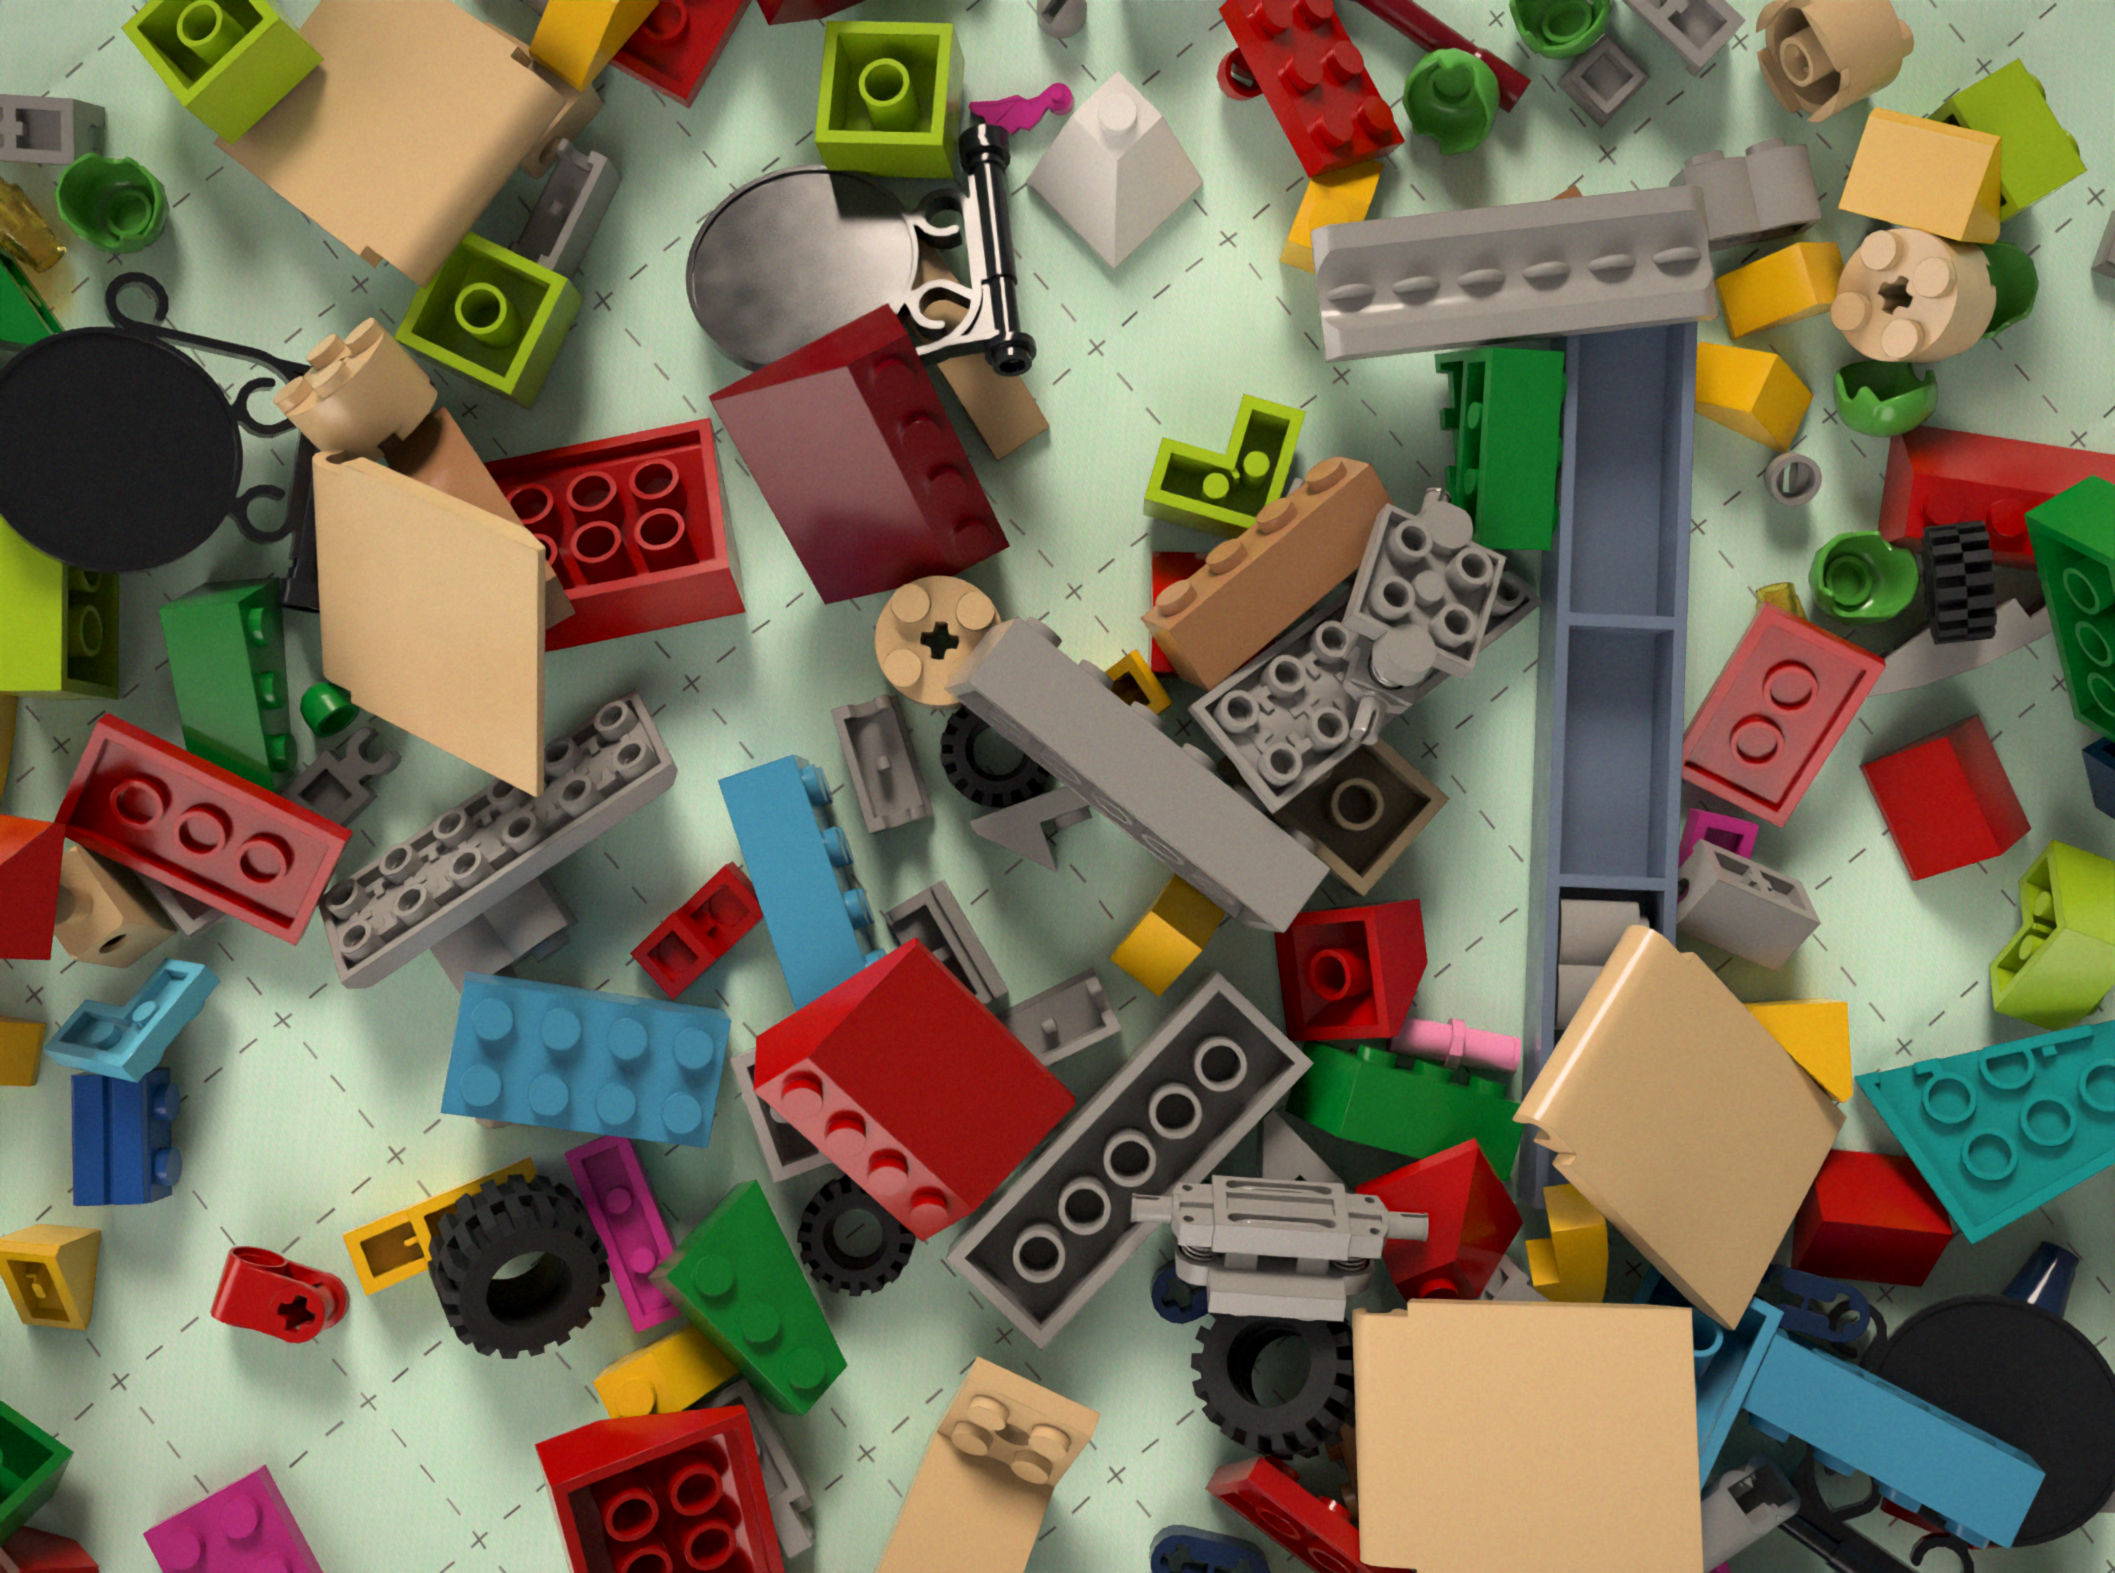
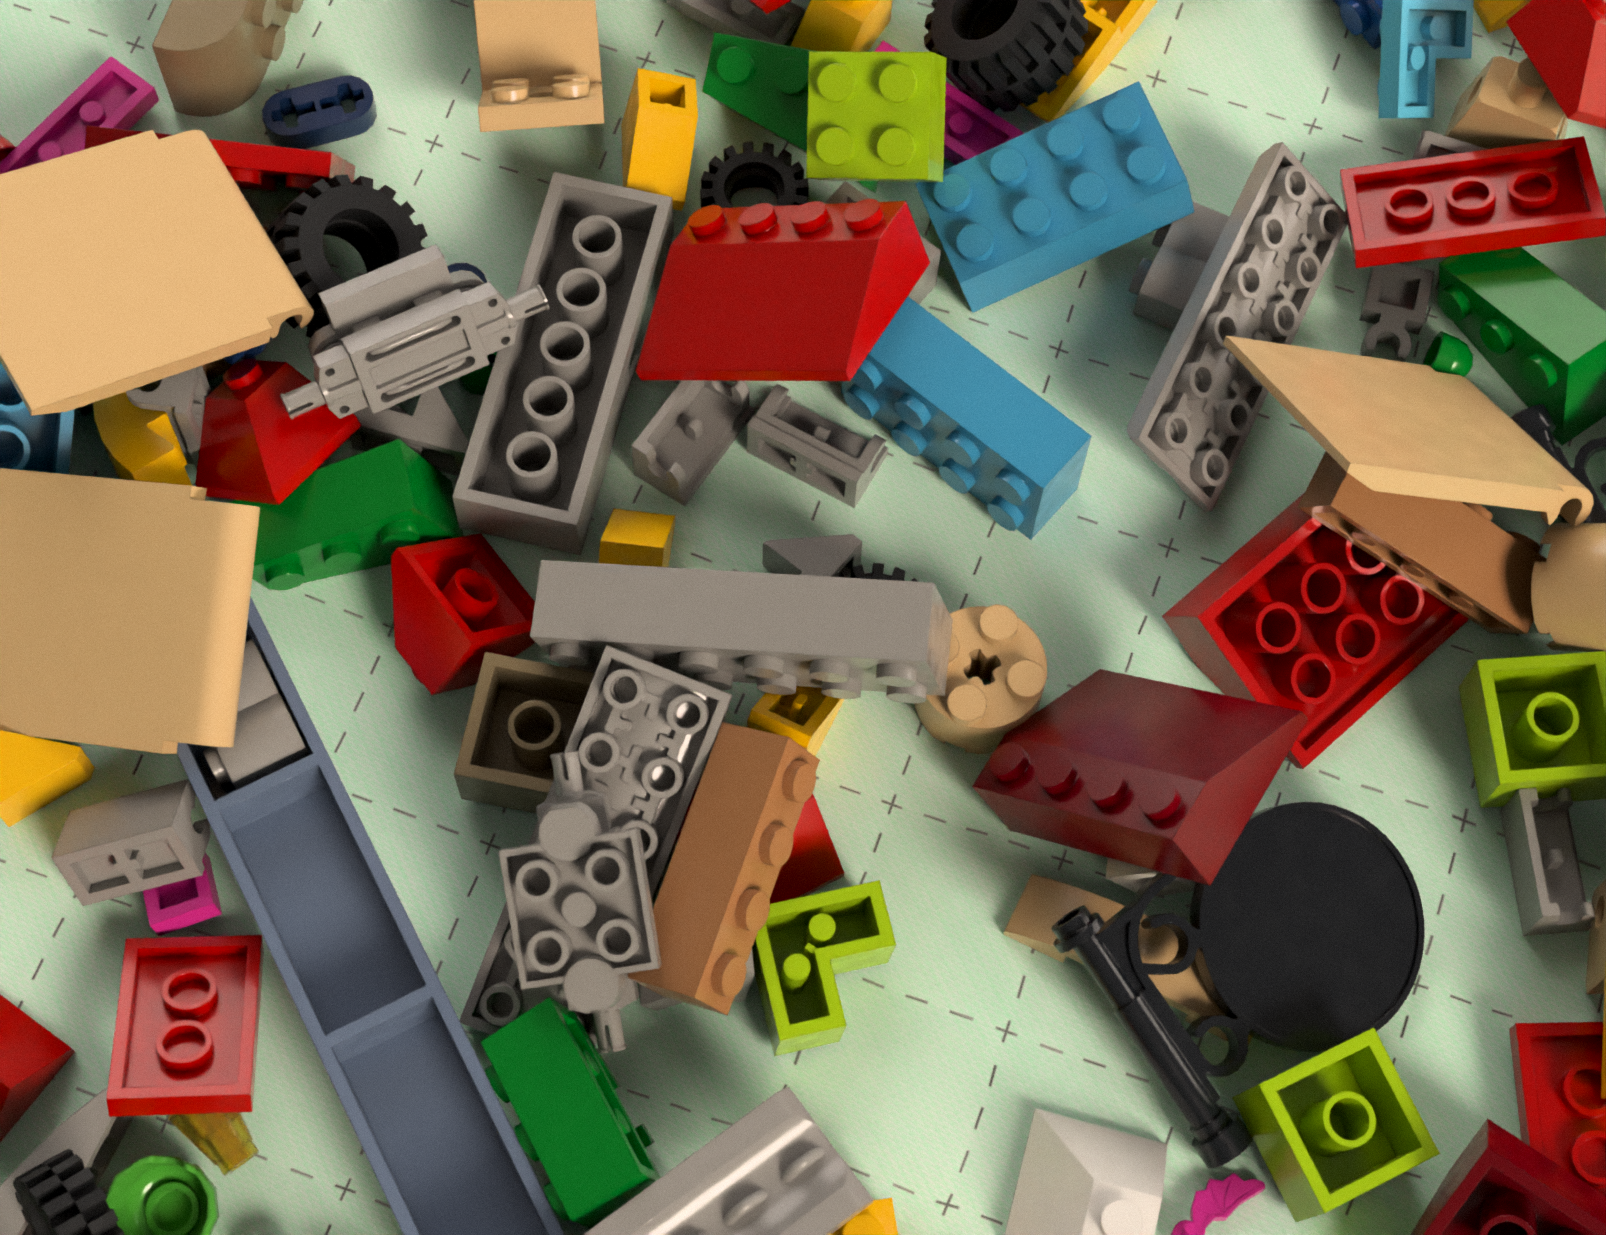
camera: 150 degrees right, 20 degrees down
(700, 931) = (1034, 341): red slope -> none
(715, 1216) = (876, 116): none -> lime brick
(882, 763) = (965, 554): light grey hinge -> none
(916, 1339) = (659, 134): none -> yellow slope
(1456, 1045) = (331, 601): bright pink pin -> none

